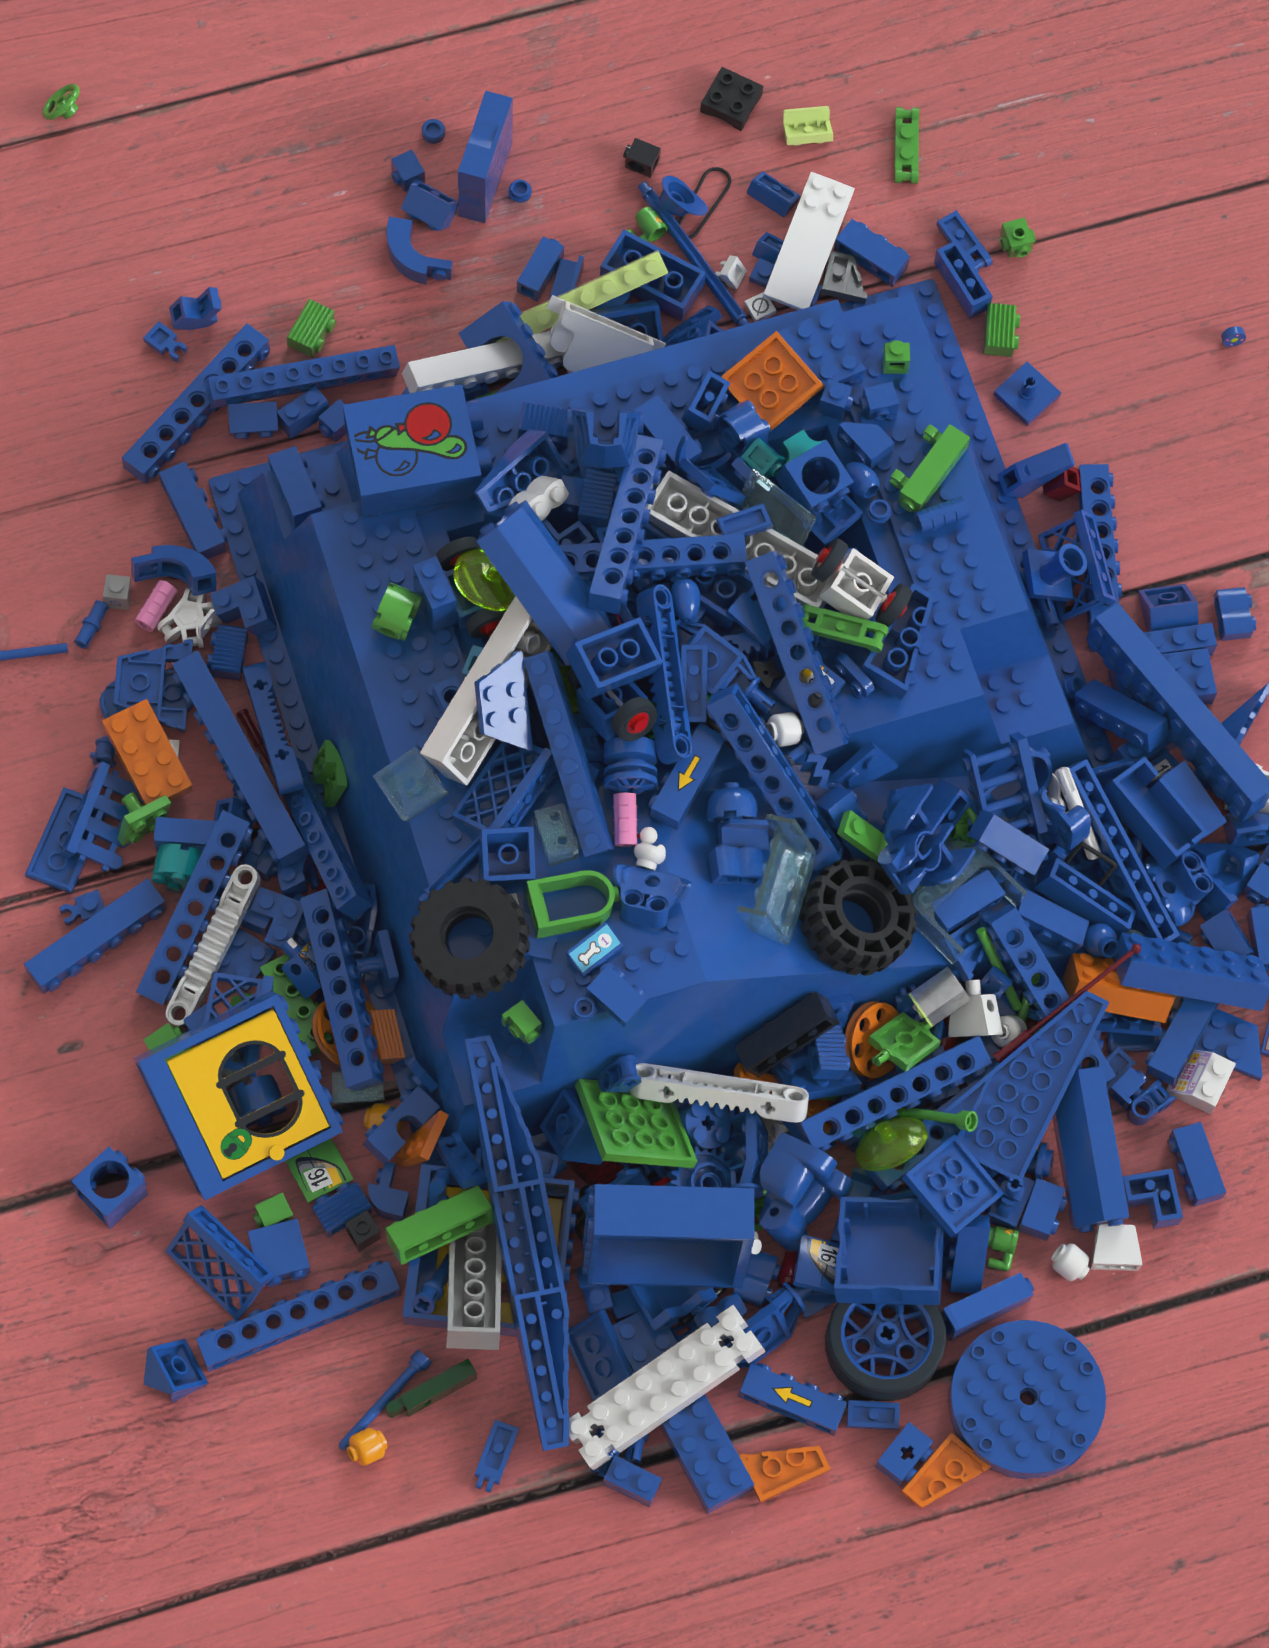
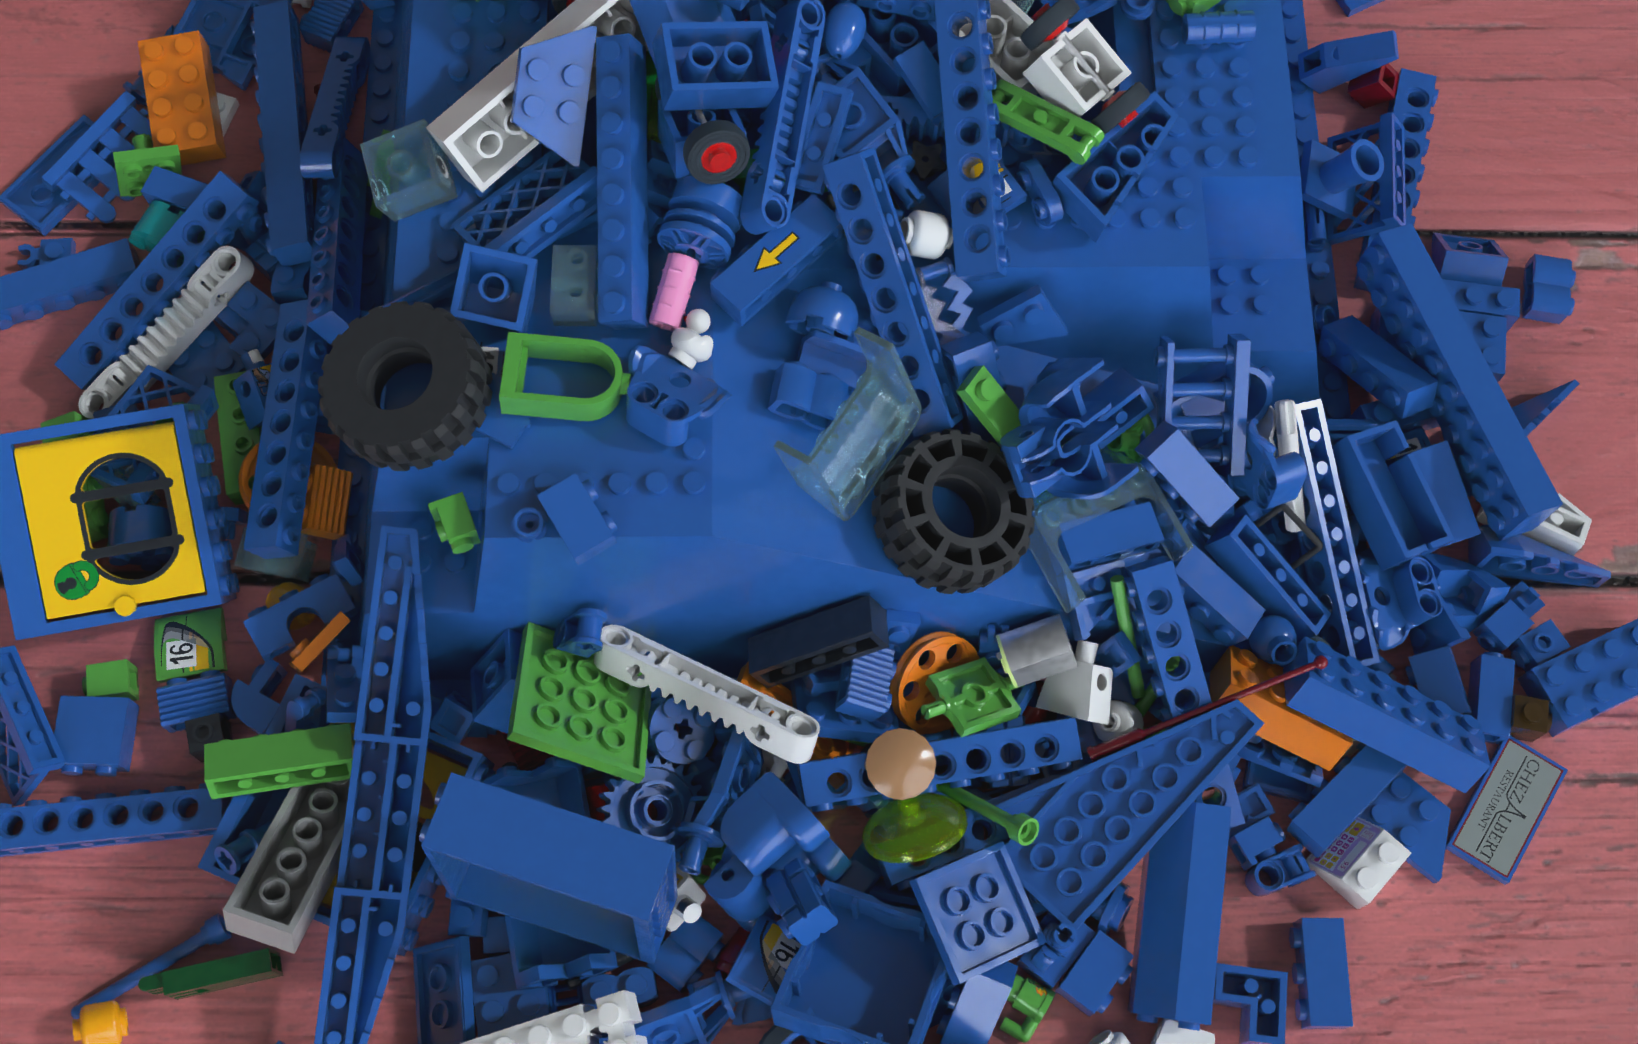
camera: 20 degrees right, 0 degrees up
(594, 949) = (571, 449): slope -> none
(830, 1214) = (800, 902): none -> blue brick
(870, 1101) = (900, 764): none -> medium nougat dish

